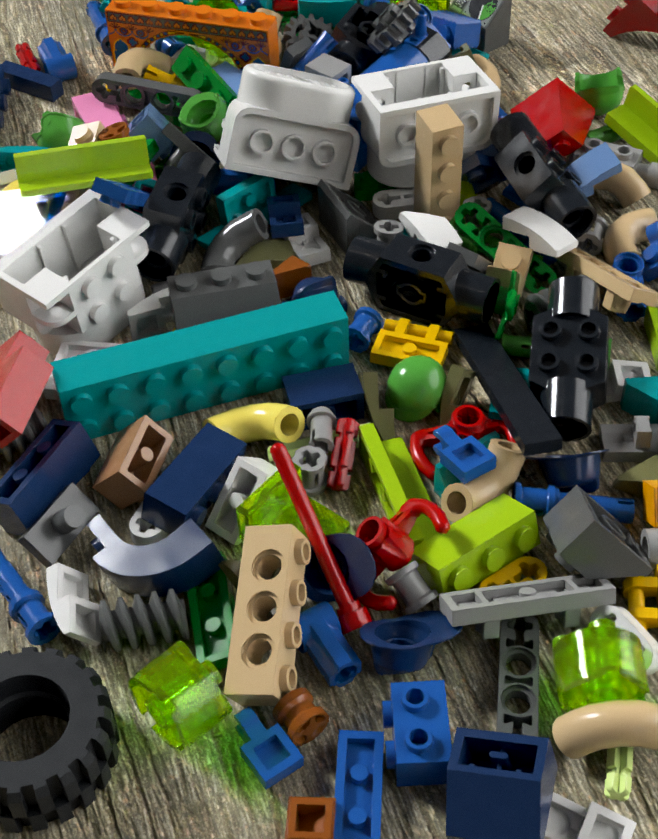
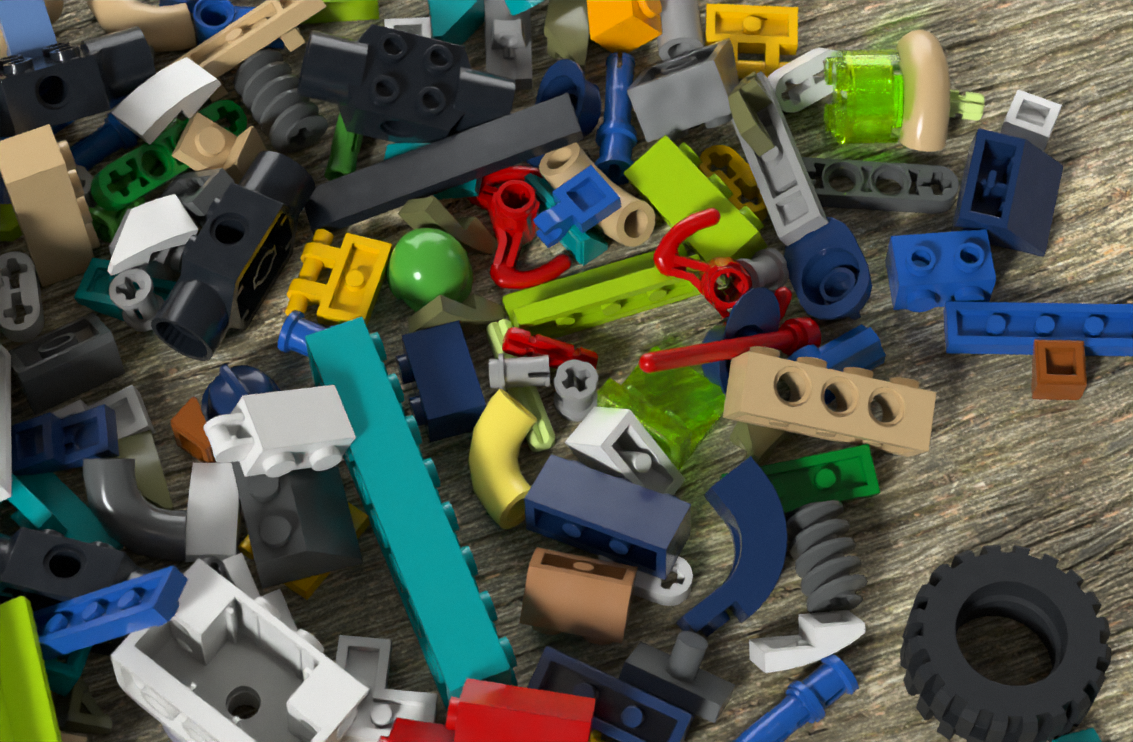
camera: 95 degrees left, 15 degrees up
(180, 696) = (938, 493): clear neon green brick -> none
(249, 269) = (283, 431): none -> white brick
(266, 752) = (974, 413): blue plate -> none
(300, 716) = (938, 376): dark orange wheel -> none
(506, 304) = (305, 145): green plate -> none
(561, 566) = (744, 104): none -> olive slope

